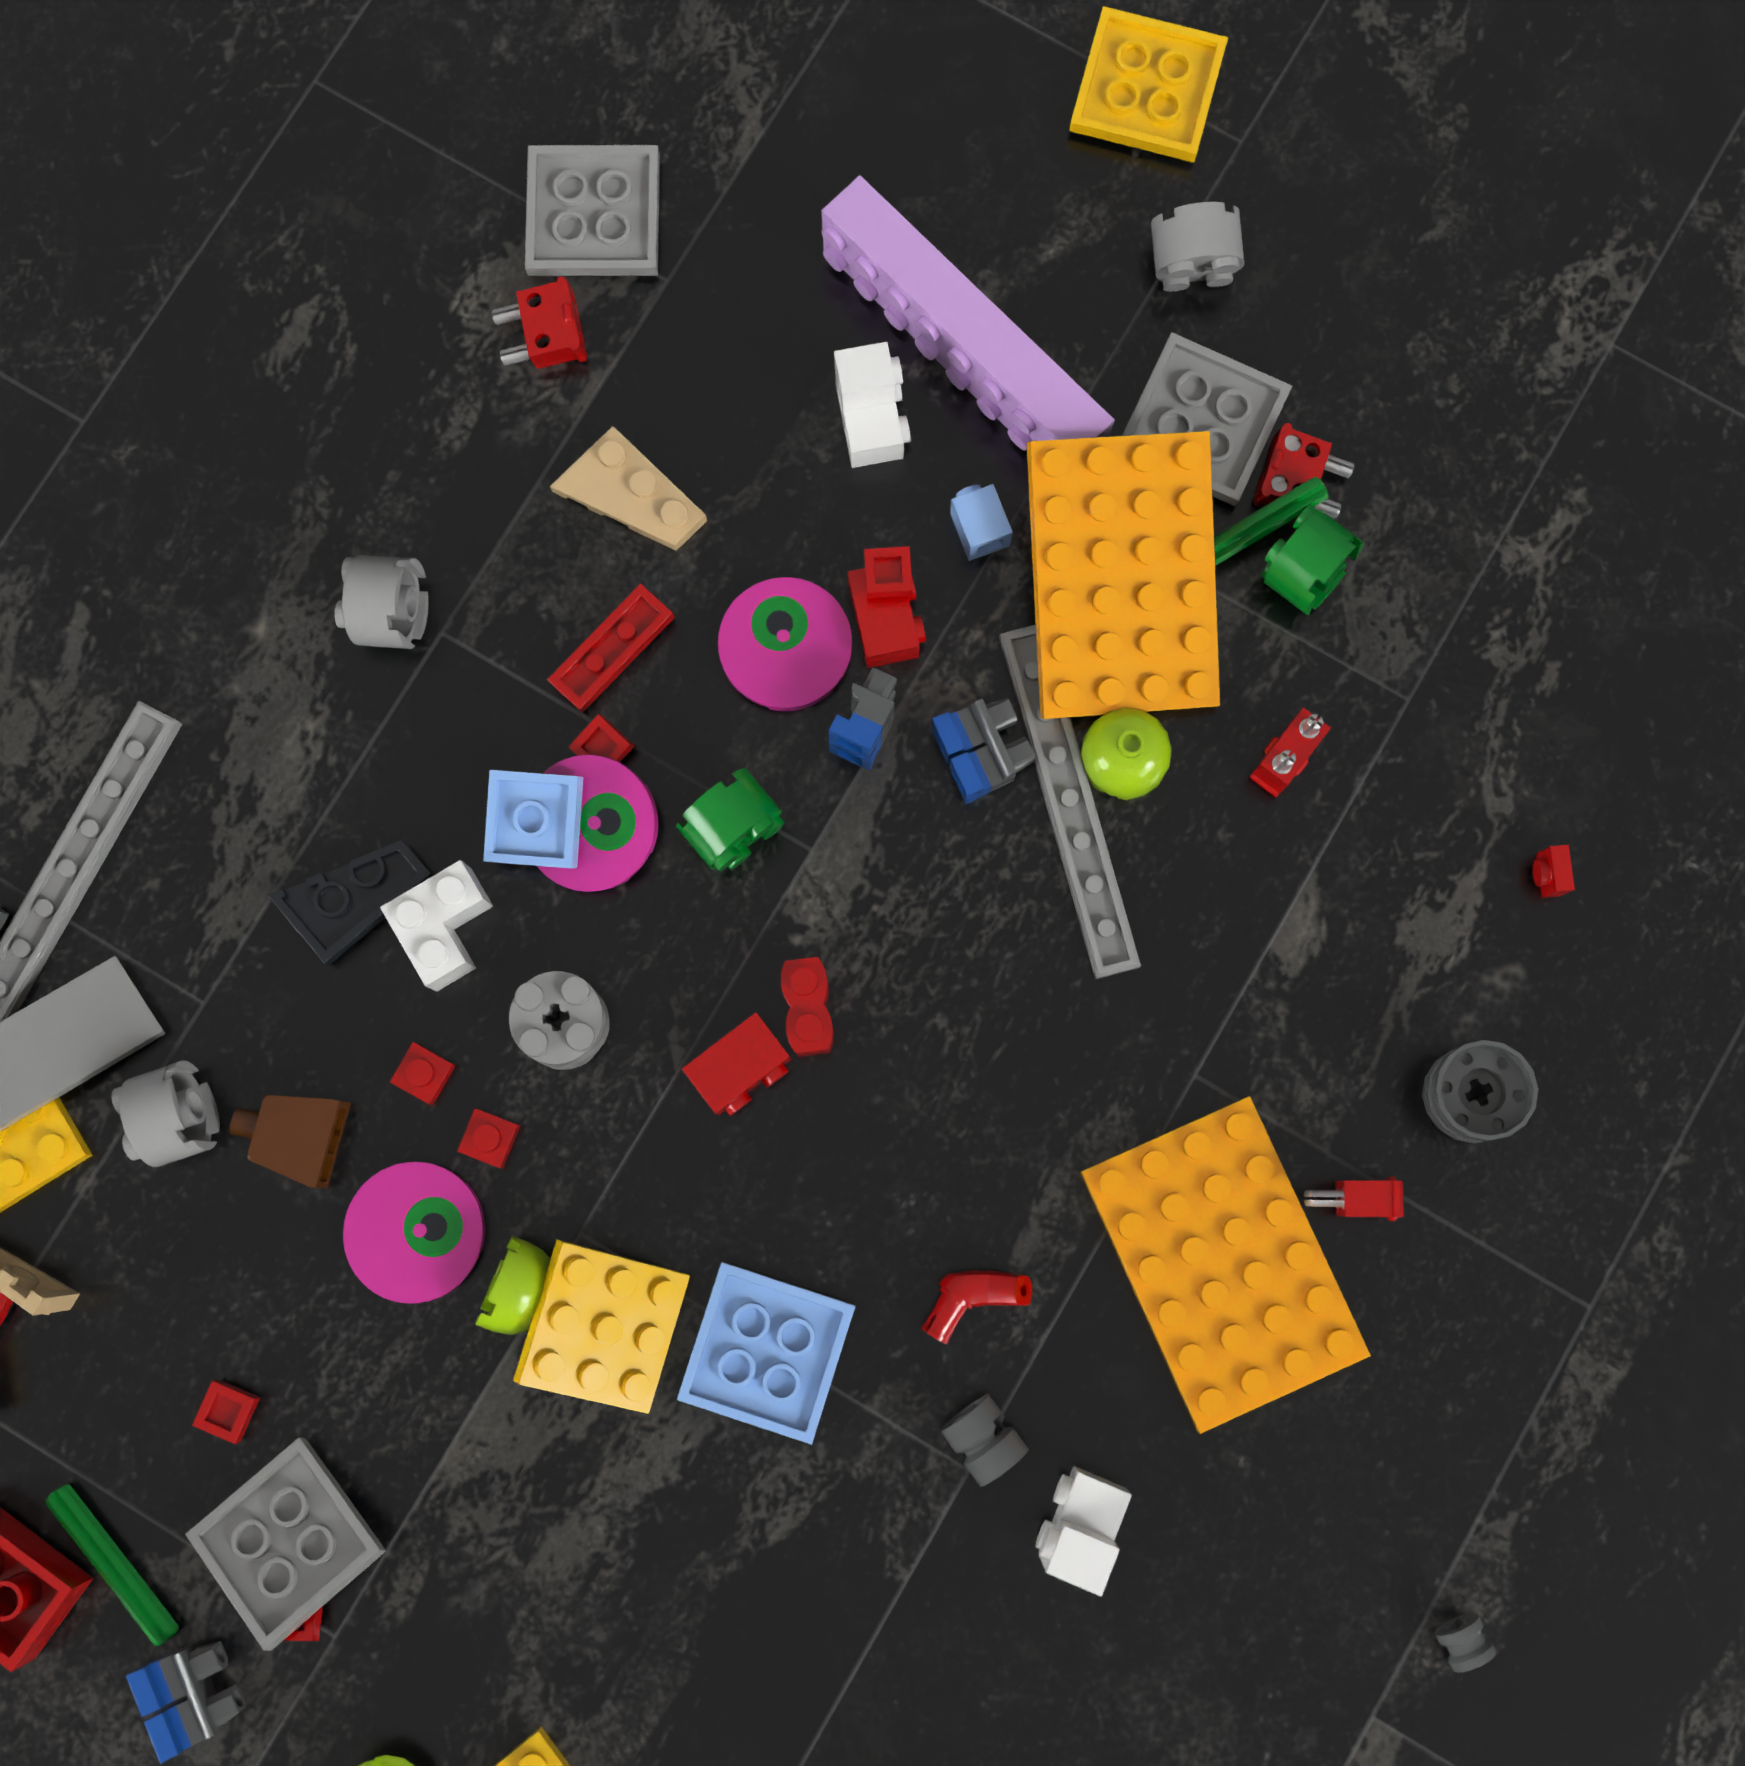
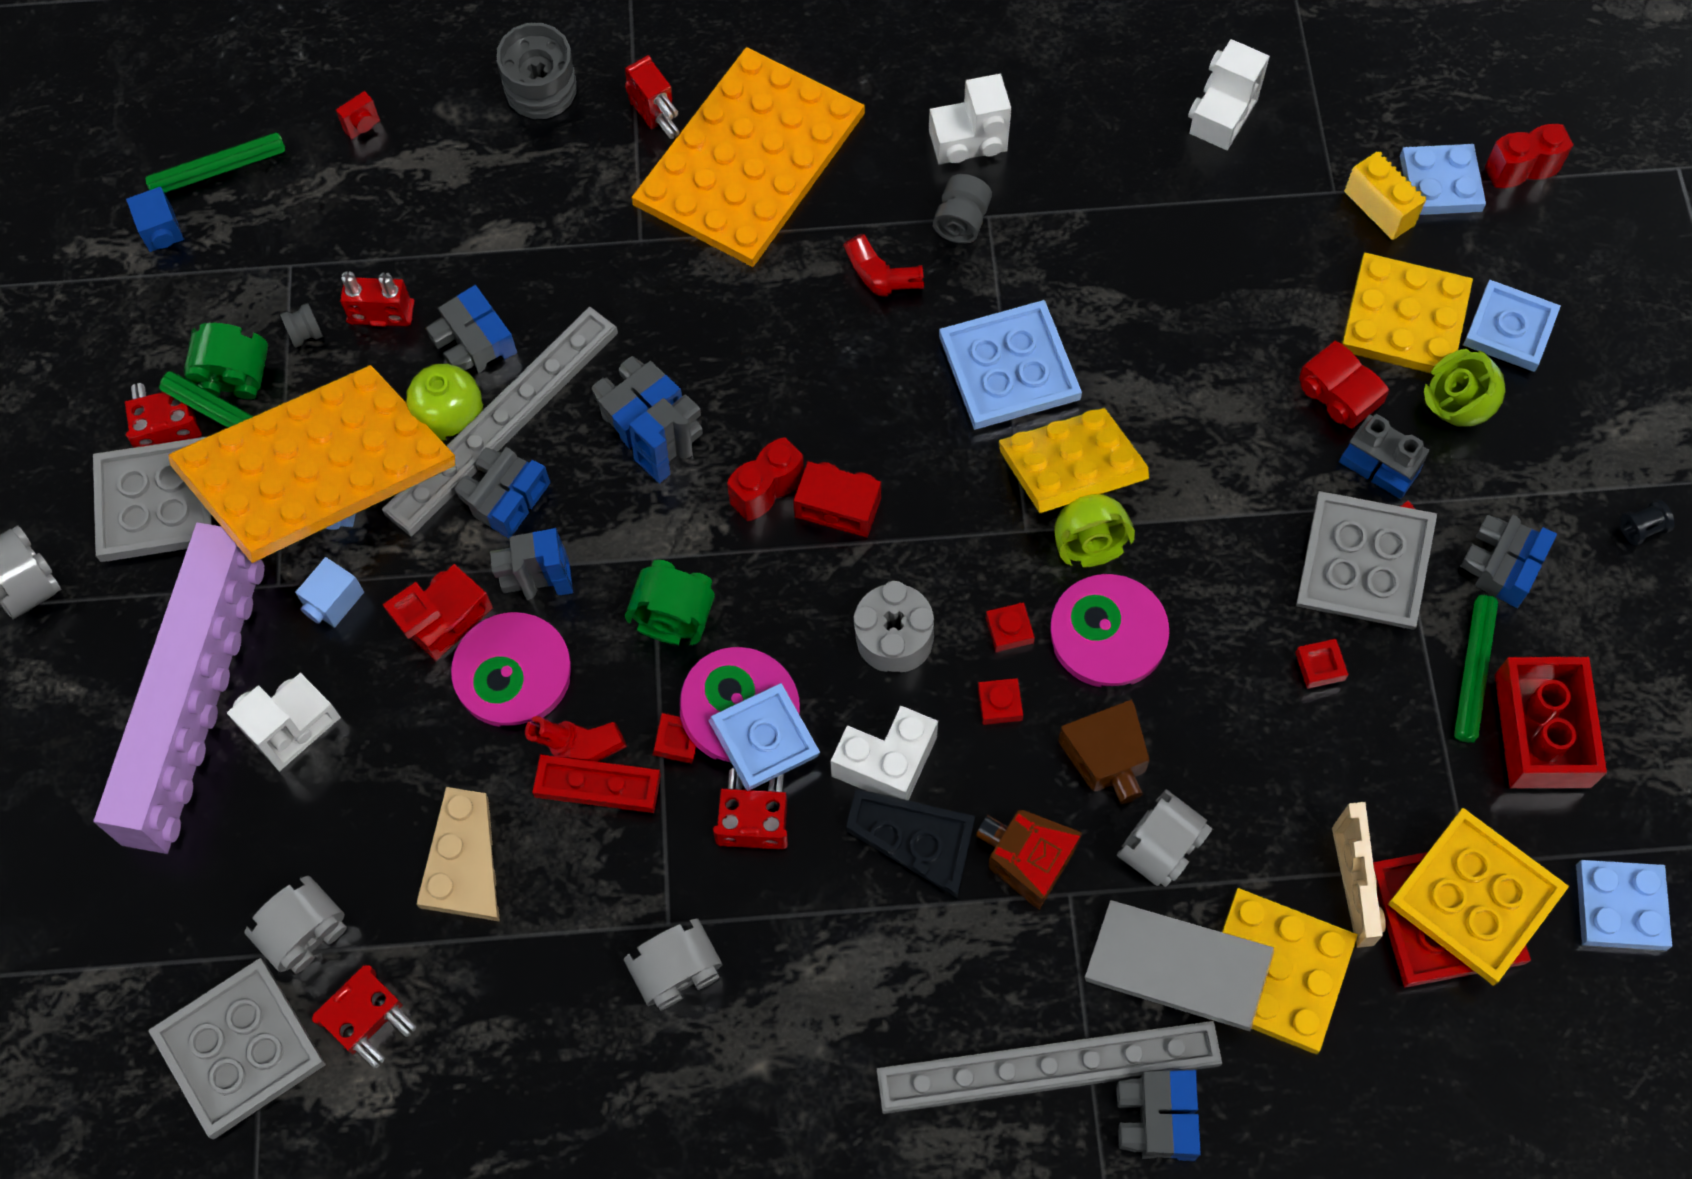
camera: 125 degrees left, 15 degrees down
(255, 988) = (1029, 853): none -> torso
(380, 1661) = (1378, 442): none -> dark grey hips
(470, 761) = (752, 820): none -> red piece
(489, 1688) = (1343, 385): none -> red brick
(657, 310) = (295, 925): none -> light grey brick
(664, 654) = (574, 741): none -> red arm
(925, 935) = (664, 434): none -> hips
(992, 959) = (638, 392): none -> hips
(1188, 831) = (475, 329): none -> dark grey hips
(1314, 663) = (301, 325): none -> dark grey wheel
(1551, 589) = (155, 219): none -> blue brick
(1591, 692) = (217, 163): none -> green axle

